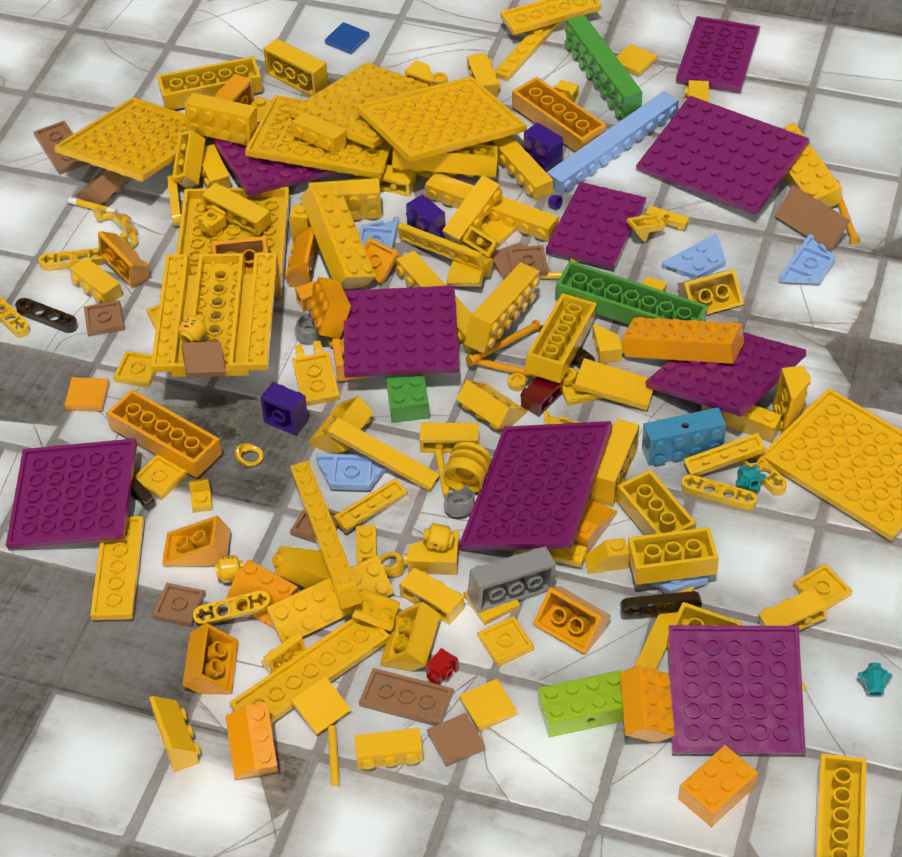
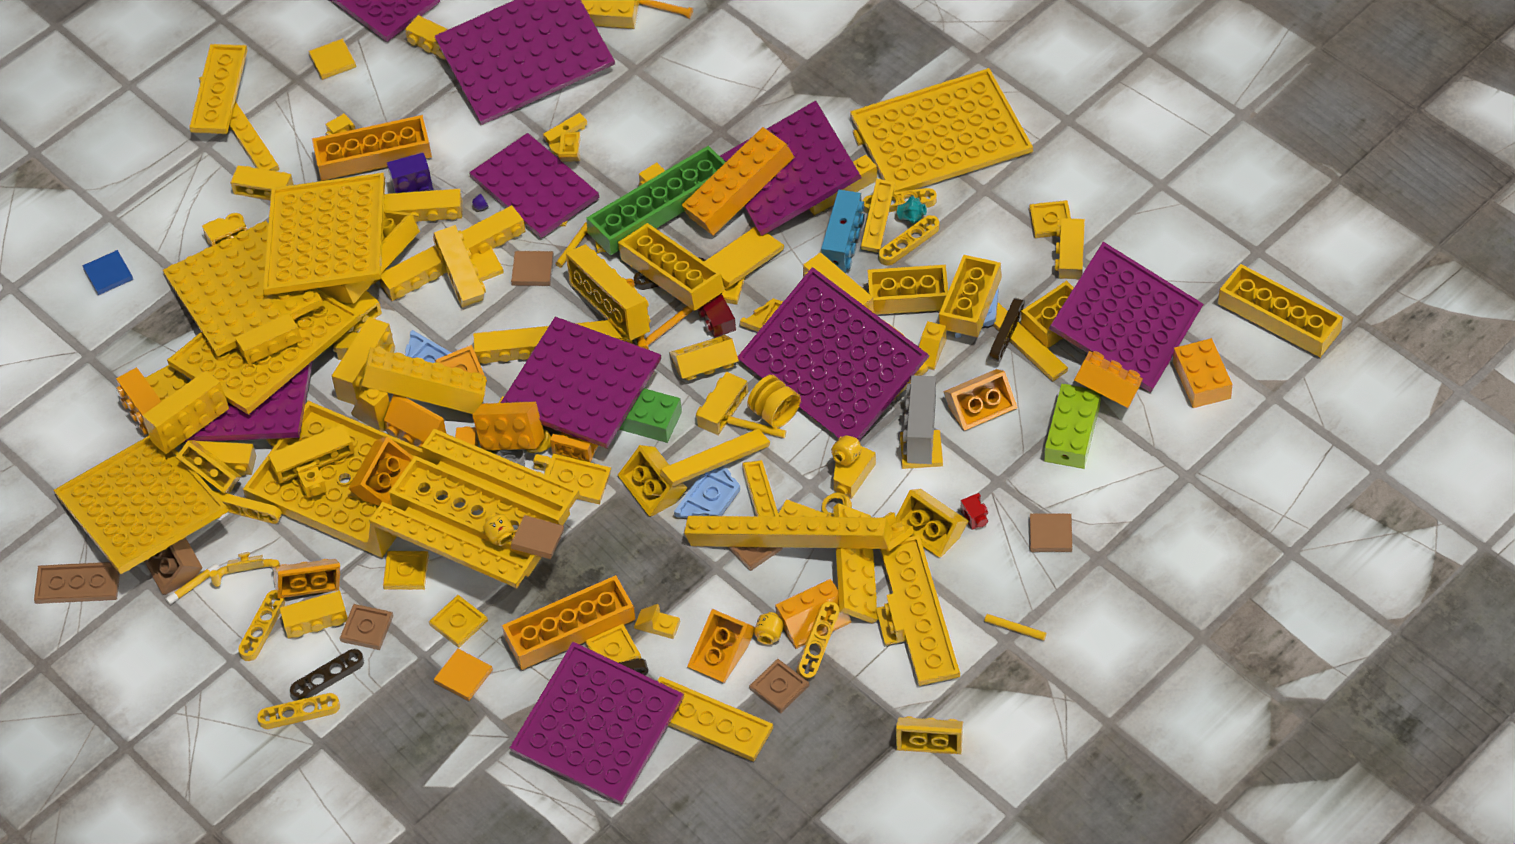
camera: 60 degrees left, 5 degrees up
(205, 80) = (90, 414): yellow brick -> none
(210, 661) = (862, 681): light orange slope -> none
(243, 448) = (630, 574): yellow piece -> none
(251, 741) = (975, 675): light orange slope -> none
(284, 408) = (607, 512): dark purple brick -> none
(295, 67) = (133, 329): yellow brick -> none
(300, 565) = (810, 567): yellow slope -> none
(320, 705) = (962, 614): yellow tile -> none
(388, 748) = (1036, 582): yellow brick -> none
(406, 697) = (986, 551): medium nougat tile -> none
(421, 587) = (892, 487): yellow brick -> none
(425, 216) = (441, 308): dark purple brick -> none
(441, 246) = (484, 310): yellow tile -> none
(459, 502) = (801, 425): light grey hair -> none
(466, 276) = (522, 302): yellow slope -> none
(480, 240) = (501, 276): yellow slope -> none
(488, 705) = (1029, 495): yellow tile -> none
(505, 641) = (971, 457): yellow tile -> none
(517, 382) = (685, 327): yellow tile -> none
(531, 255) = (546, 254): medium nougat tile -> none
(602, 67) = (335, 84): bright green brick -> none
(607, 345) = (694, 240): yellow slope -> none
(613, 142) = (436, 122): light blue brick -> none
(699, 259) = (632, 131): light blue wing -> none
(716, 290) = (681, 136): yellow slope -> none
(791, 394) = (857, 133): yellow slope -> none
(809, 263) = (696, 56): light blue wing -> none
(812, 217) = (649, 26): medium nougat tile -> none
(875, 679) = (1162, 226): teal rock -> none

